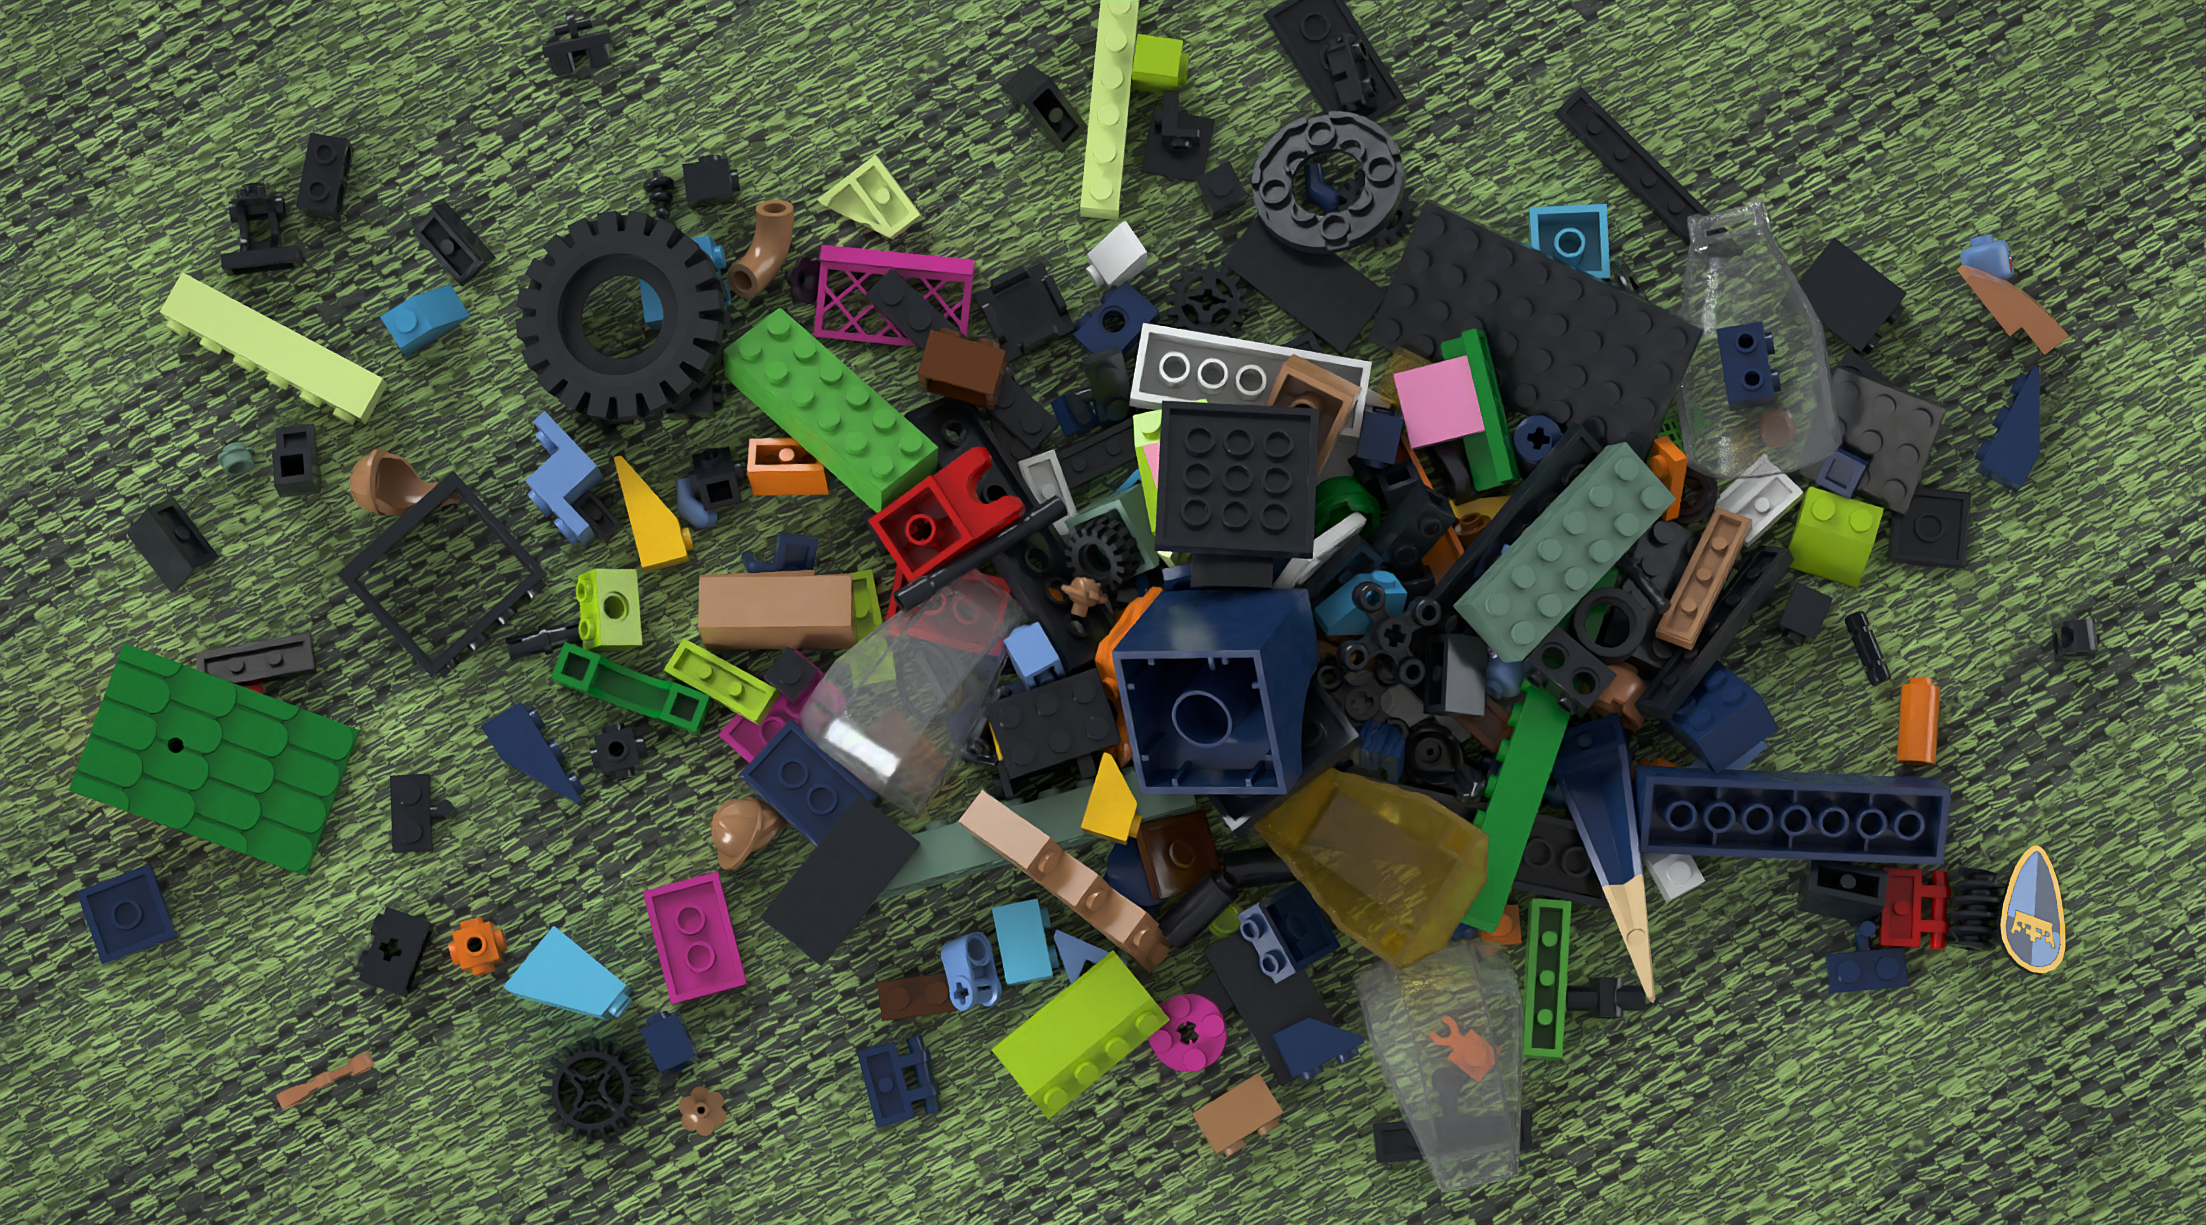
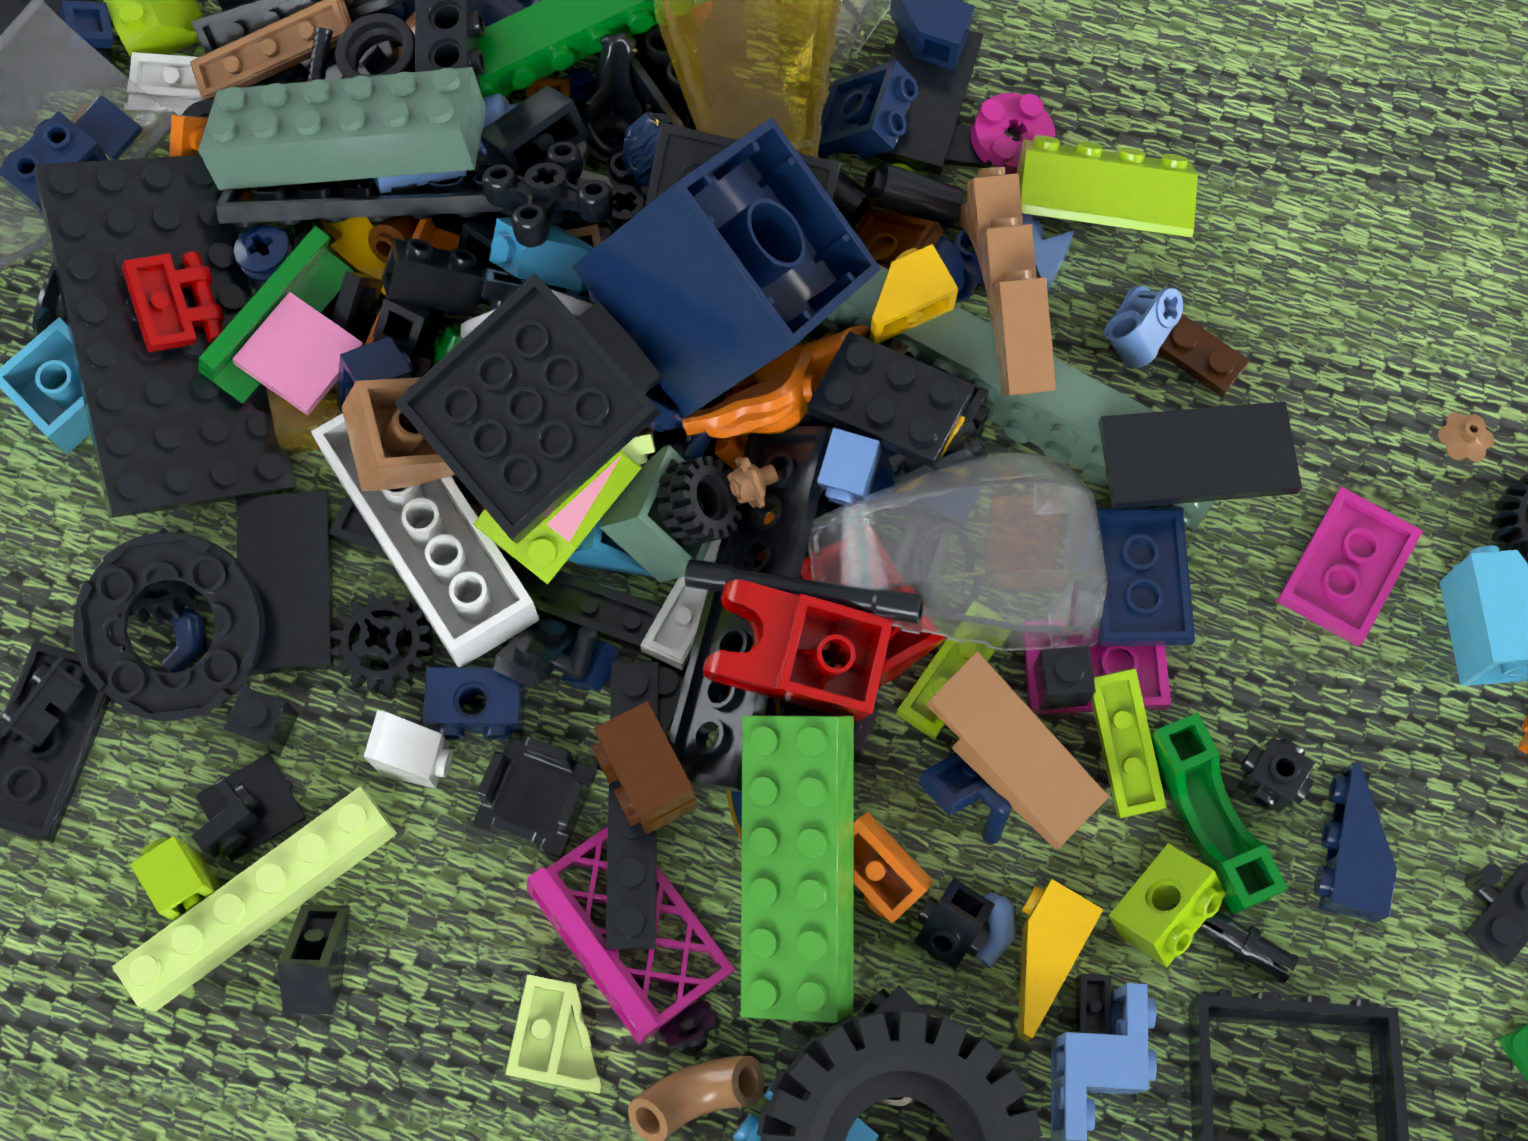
camera: 135 degrees left, 10 degrees down
(670, 1043) = (1460, 490): dark blue brick -> none
(742, 828) = (1228, 602): medium nougat piece -> none
(887, 1085) = (1292, 314): dark blue plate -> none
(1023, 942) = (1080, 304): medium azure brick -> none
(1237, 1115) = (1037, 46): medium nougat brick -> none
(1541, 337) = (161, 304): none -> red plate
(1745, 426) = (109, 127): none -> dark blue slope

